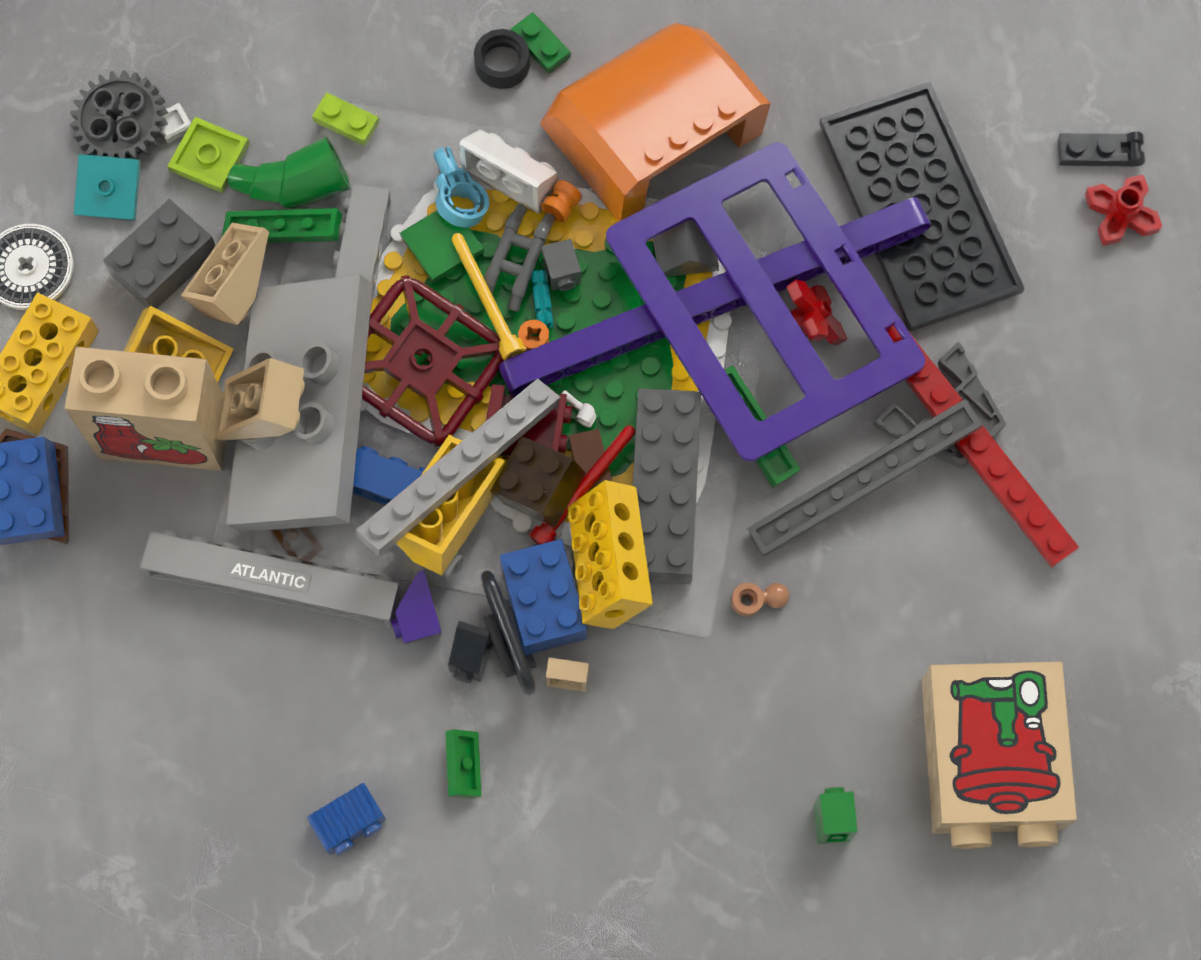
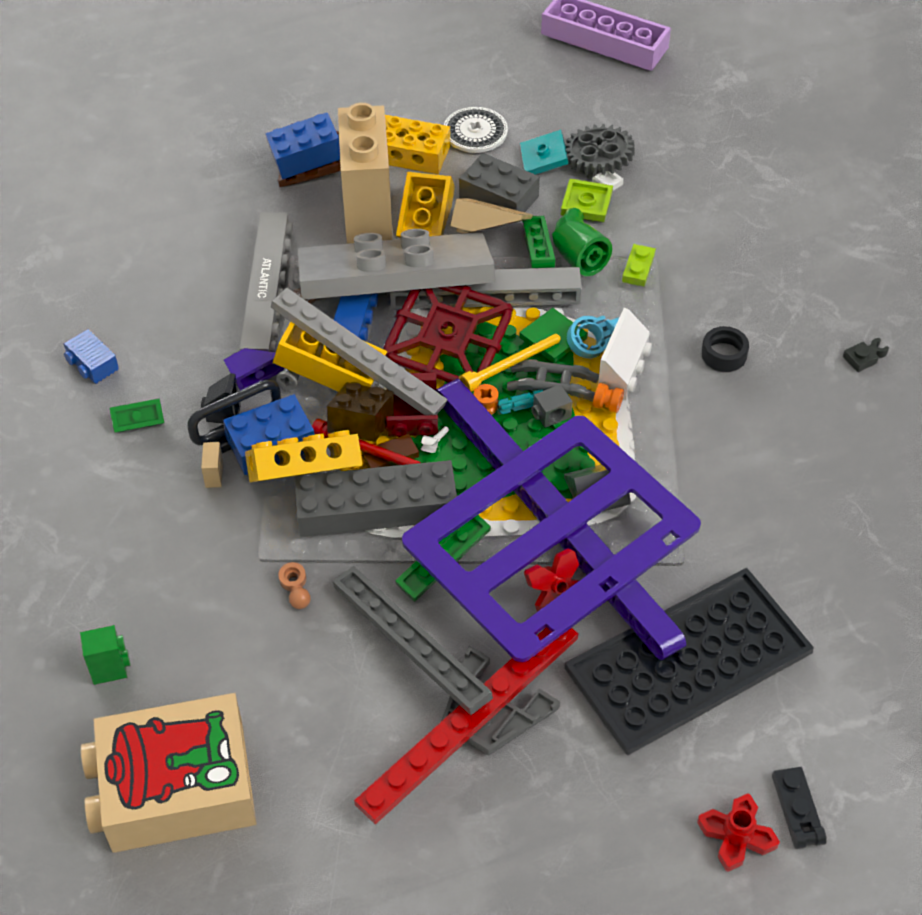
camera: 80 degrees right, 20 degrees down
(261, 401) = (380, 227): tan slope -> none
(542, 43) = (750, 373): green plate -> none
(652, 112) = (708, 437): orange slope -> none

